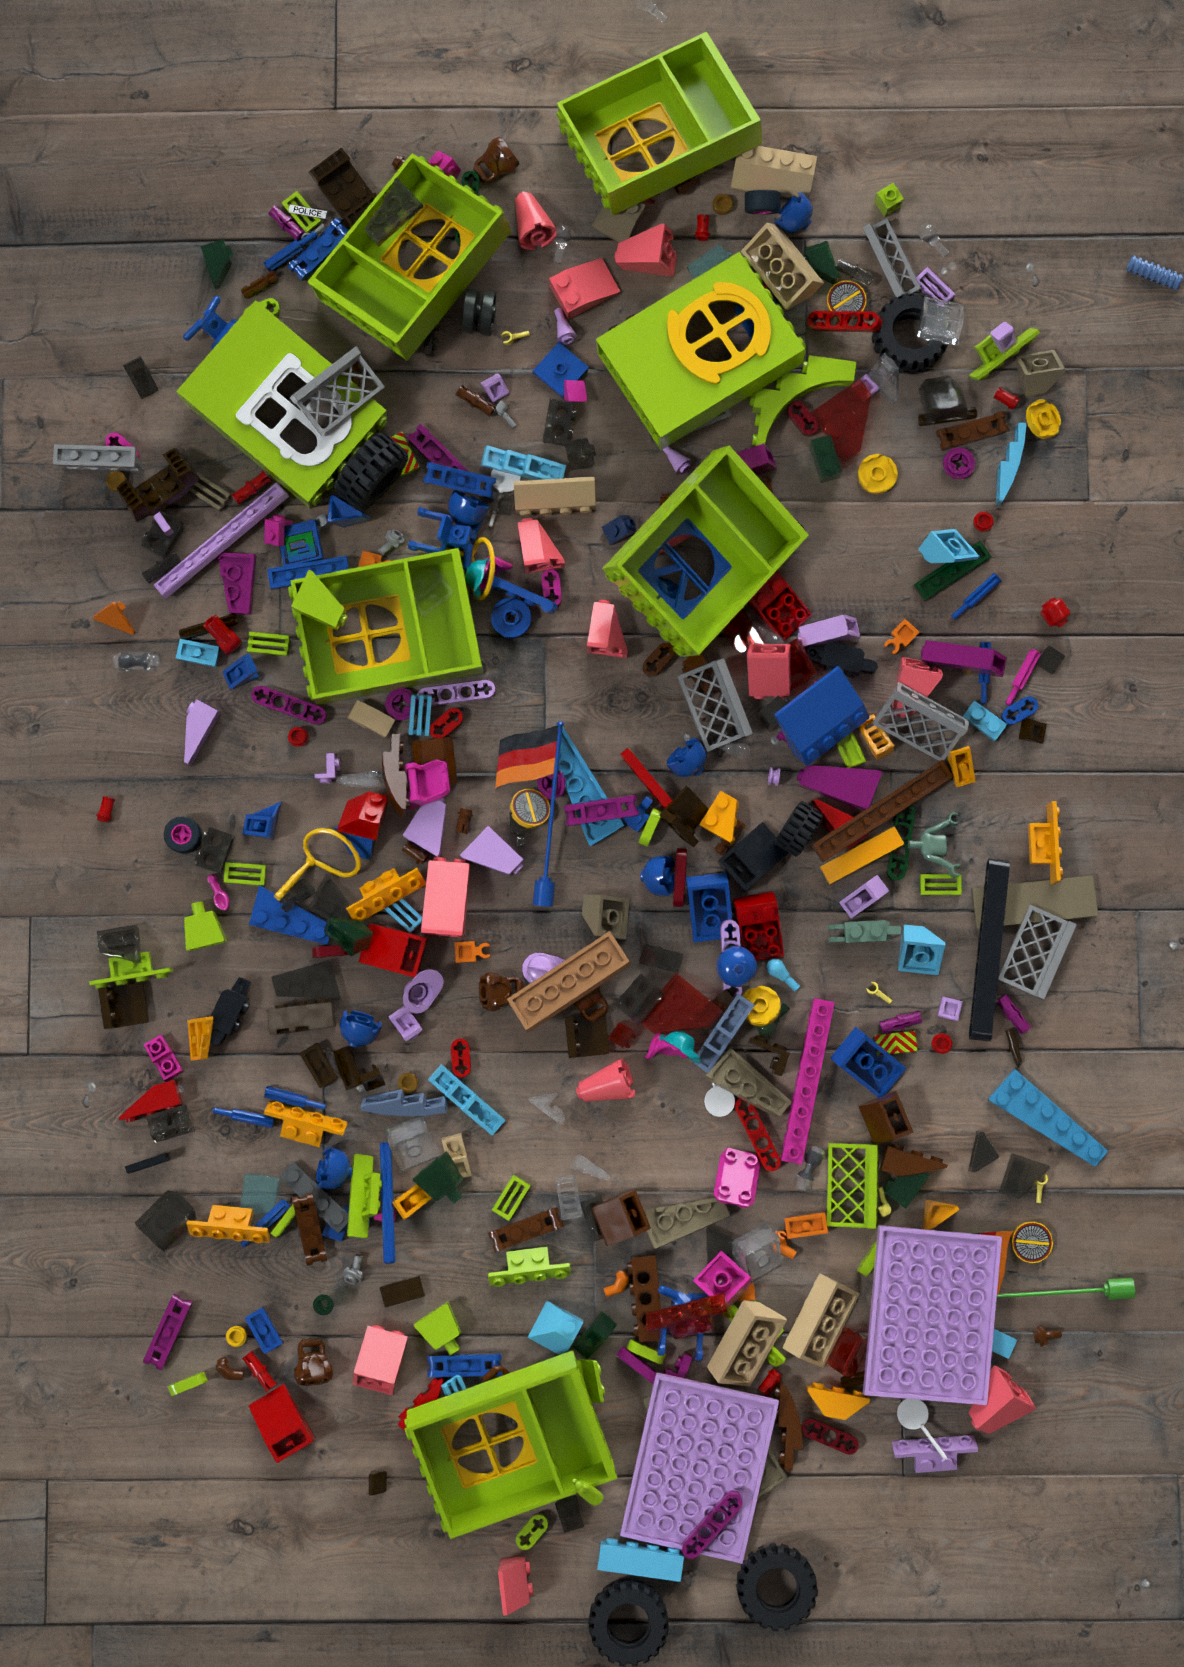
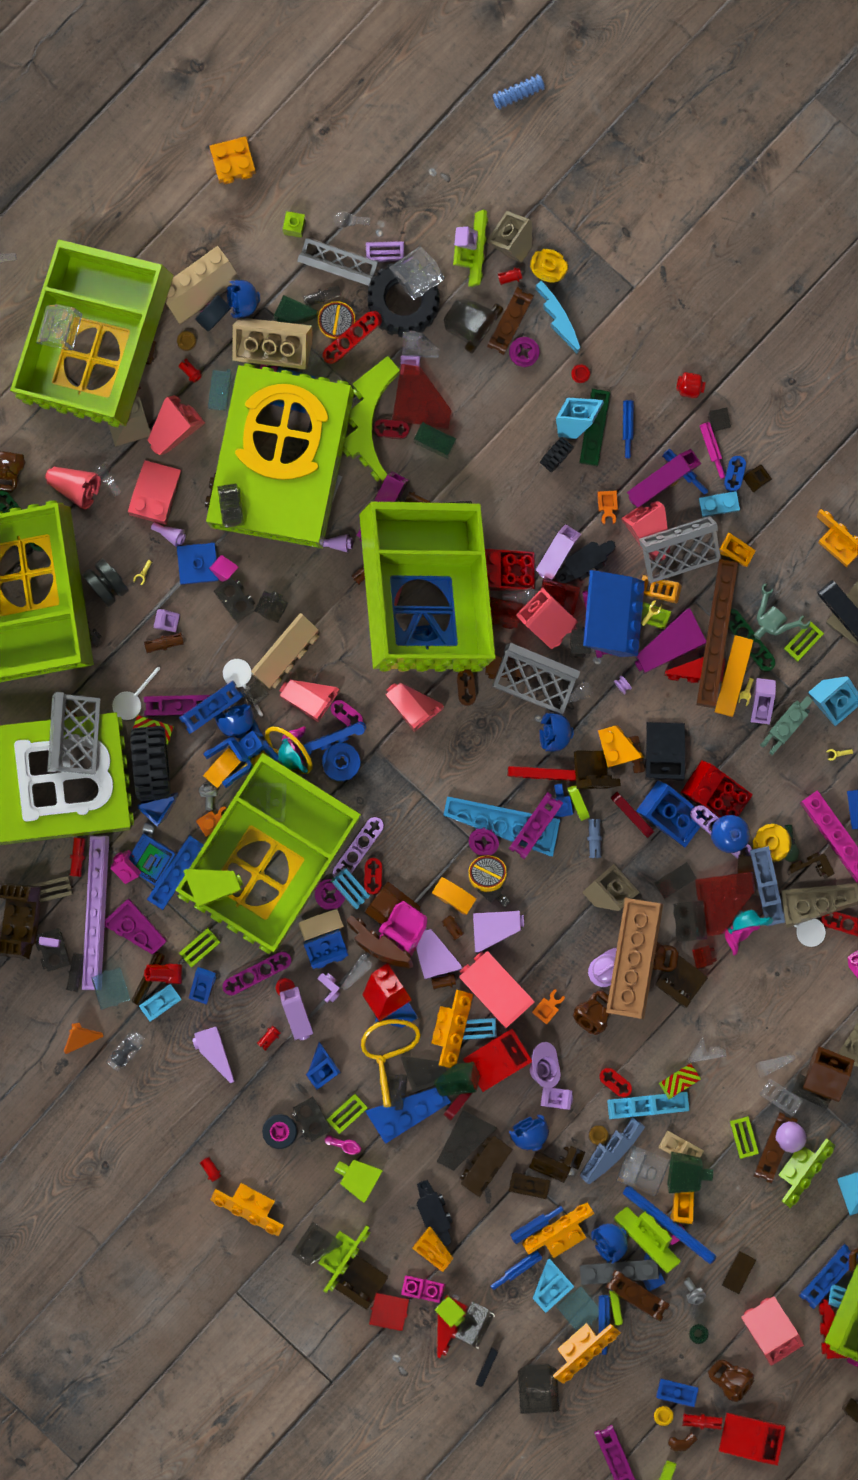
camera: 45 degrees left, 0 degrees up
(105, 865) = (250, 1206): none -> light orange bracket
(121, 1047) = (388, 1311): none -> red piece
(161, 1094) = (450, 1312): none -> lime brick
(173, 605) = (110, 988): none -> clear light blue piece
(248, 760) = (269, 1037): none -> red pin
(256, 1155) = (551, 1286): none -> medium azure wing
(283, 762) = (296, 1013): none -> lavender slope
(356, 739) = (326, 949): none -> blue bracket
(404, 417) = (127, 703): none -> white piece
(420, 532) = (222, 768): none -> light orange slope
(440, 1328) = (788, 1269): lime torso -> none
(488, 799) = (454, 895): none -> light orange slope
(501, 409) = (186, 631): light grey hand -> none
(507, 1106) = (679, 1081): none -> tile
(521, 465) = (241, 653): medium azure slope -> none
(527, 759) = (453, 840): flag -> none
(544, 1234) = (791, 1137): none -> lavender hair
(607, 1084) = (728, 998): coral cone -> none
(619, 529) = (349, 628): dark blue bracket -> none
(624, 344) = (230, 505): none -> clear smoke brick
(634, 866) = (594, 838): none -> sand blue pin
(640, 92) = (59, 326): none -> clear slope
(659, 876) = (617, 828): blue cylinder -> none
(778, 970) = (758, 807): medium azure piece -> none
(799, 828) = (676, 702): black tyre -> none
(853, 746) = (652, 611): none -> light yellow hand
(856, 878) = (746, 693): none -> light yellow hand
(877, 474) = (478, 414): yellow tile -> none
(893, 110) = (232, 160): none -> light orange plate
(903, 560) = (556, 454): none -> black tyre

